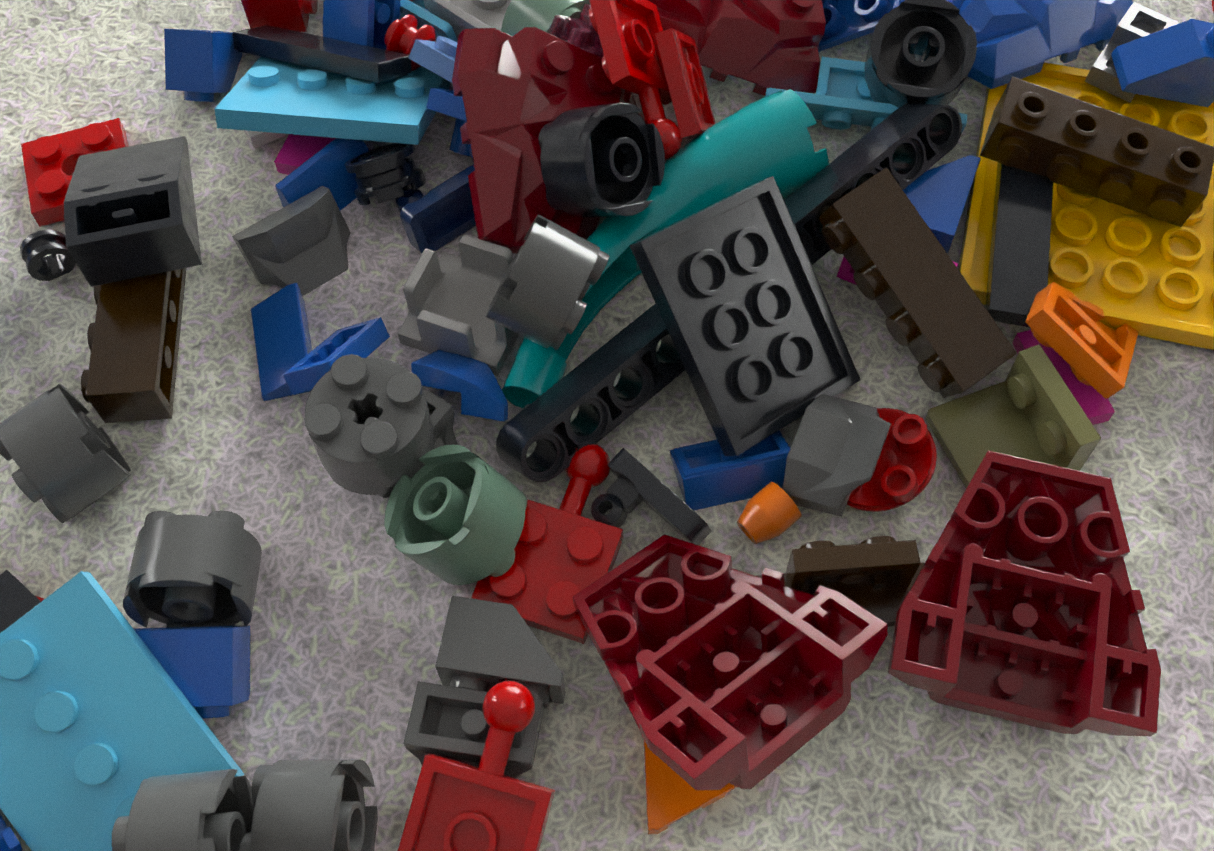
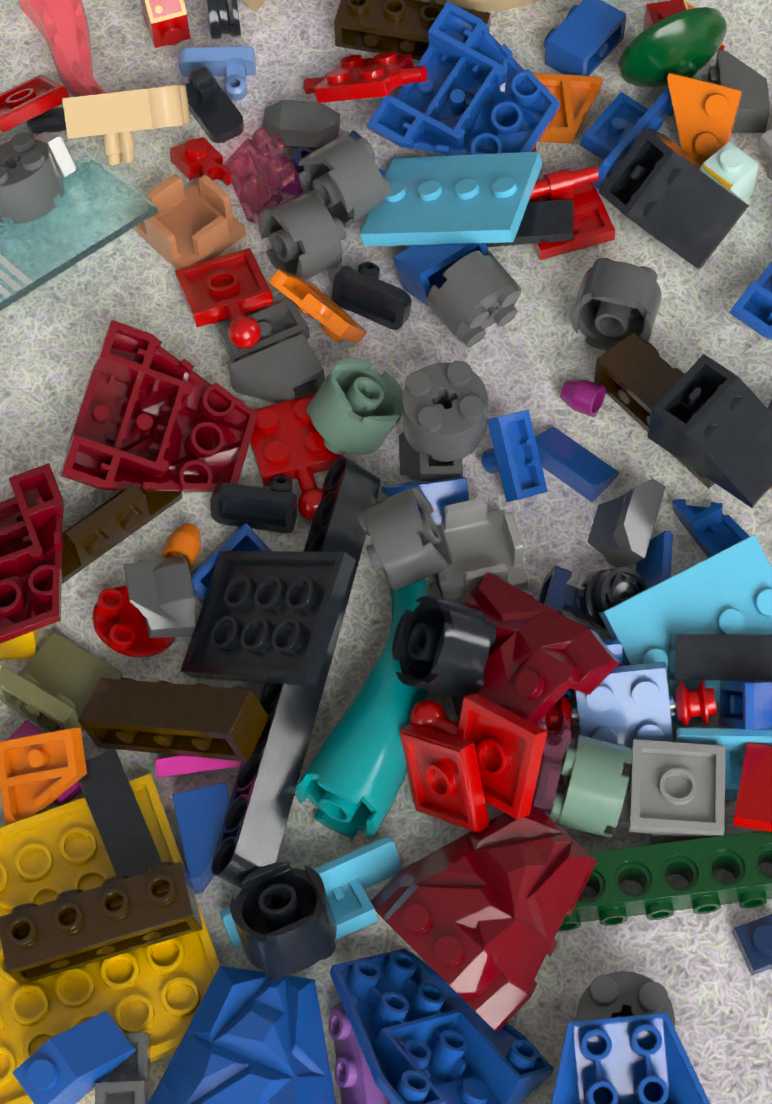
camera: 145 degrees right, 0 degrees up
(200, 402) = (583, 396): none -> magenta hose
(230, 192) = (709, 526): none -> blue slope
(304, 684) = (370, 297): none -> black piece
(380, 706) = (318, 305): none -> orange wing

